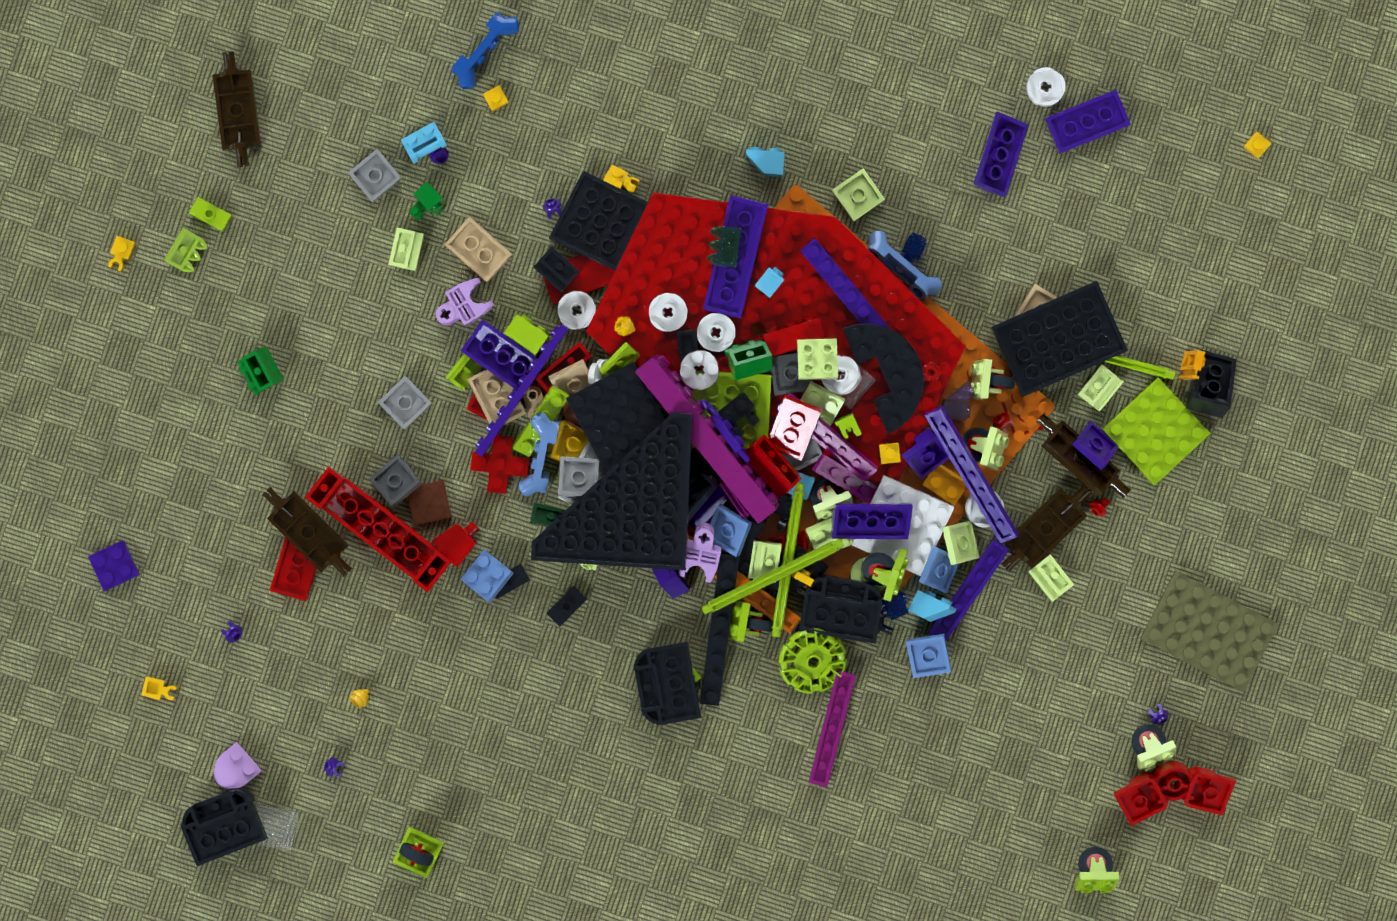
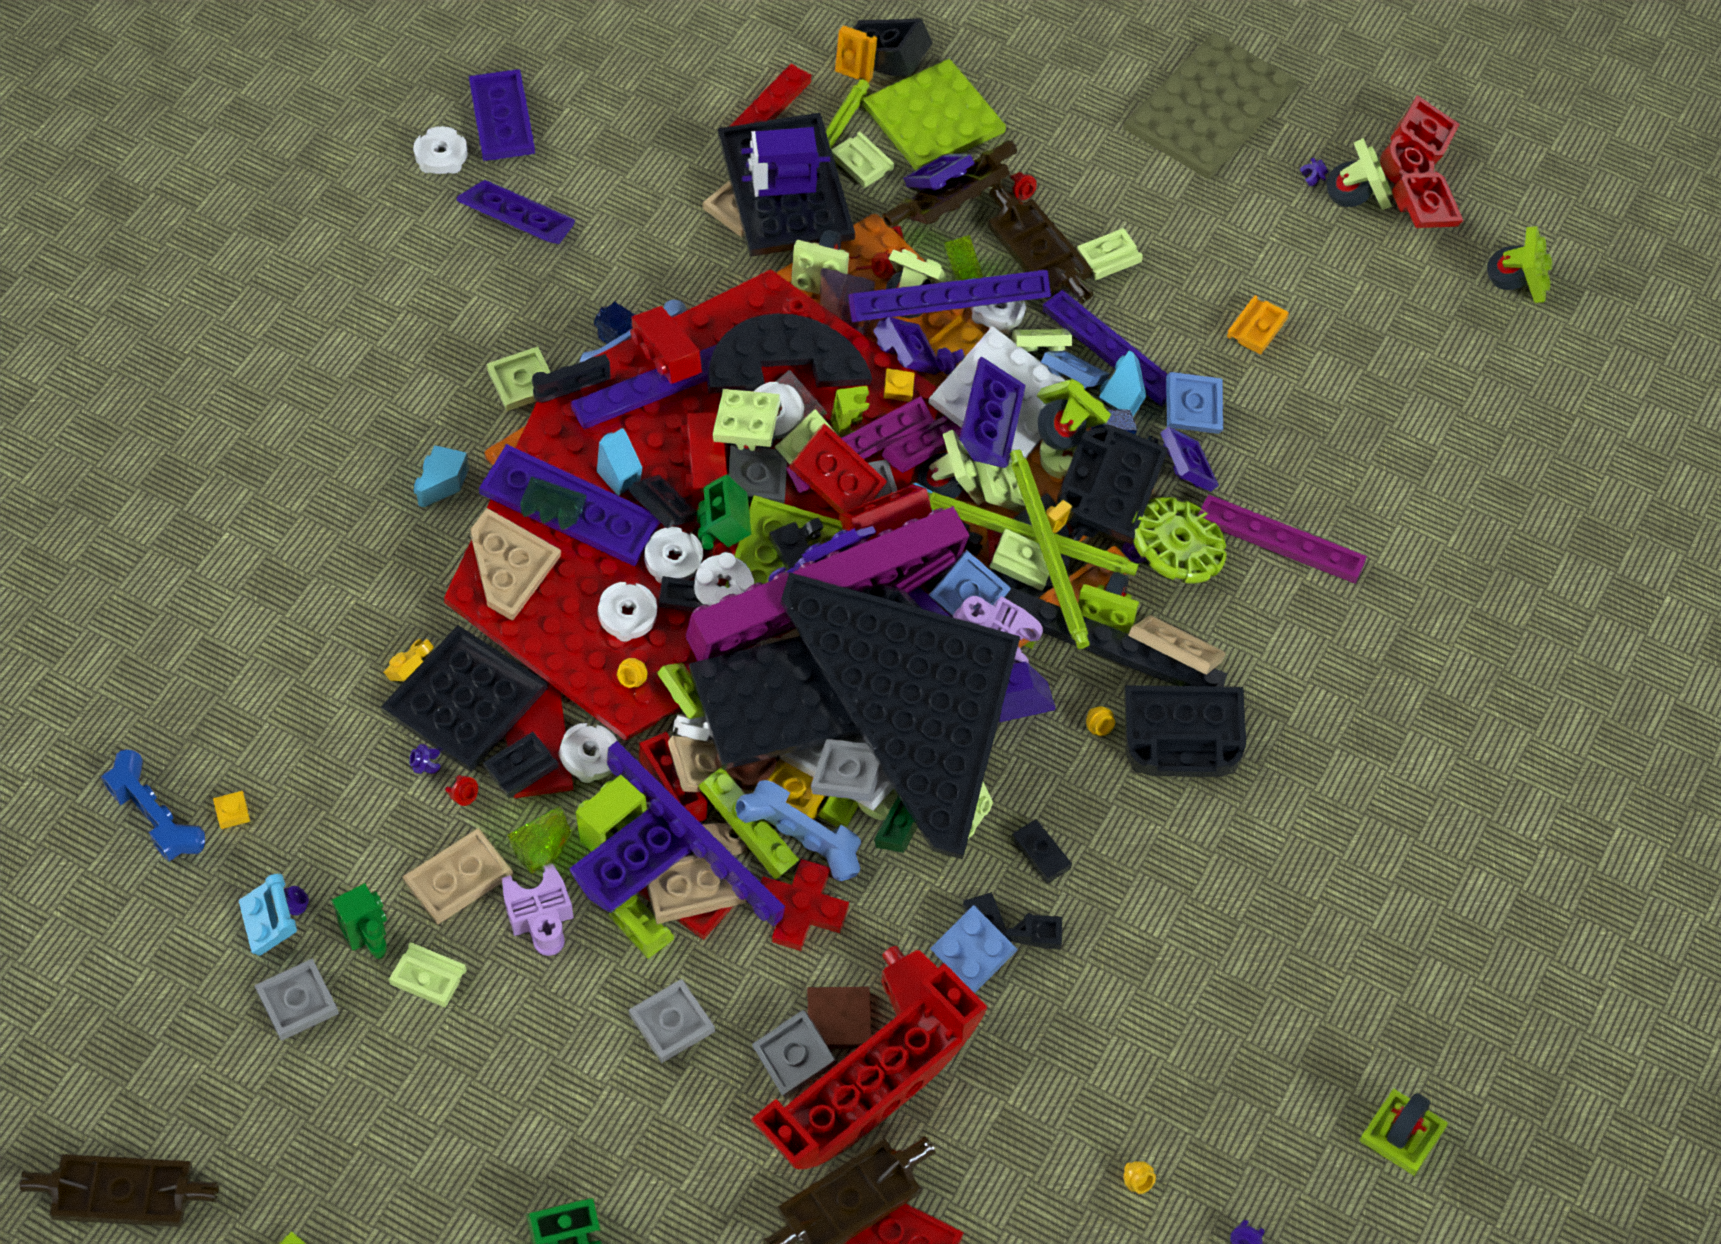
camera: 80 degrees left, 30 degrees down
(507, 295) = (540, 840): none -> clear neon green slope
(509, 613) = (1037, 931): none -> black slope
(534, 238) = (463, 790): none -> red plate
(666, 628) = (1100, 721): none -> yellow plate
(683, 228) = (509, 562): none -> tan plate
(729, 670) = (1177, 644): none -> tan tile
(751, 316) = (663, 501): none -> black plate
(832, 232) = (570, 378): none -> black plate
(870, 290) = (666, 344): none -> red brick
(878, 658) = (1189, 459): none -> dark purple plate
(923, 483) = (947, 361): none -> dark purple plate
(1009, 690) = (1258, 324): none -> light orange plate
(1015, 478) = (962, 259): none -> clear neon green slope
(1060, 335) = (783, 161): none -> dark purple piece
(1142, 311) = (776, 96): none -> red plate

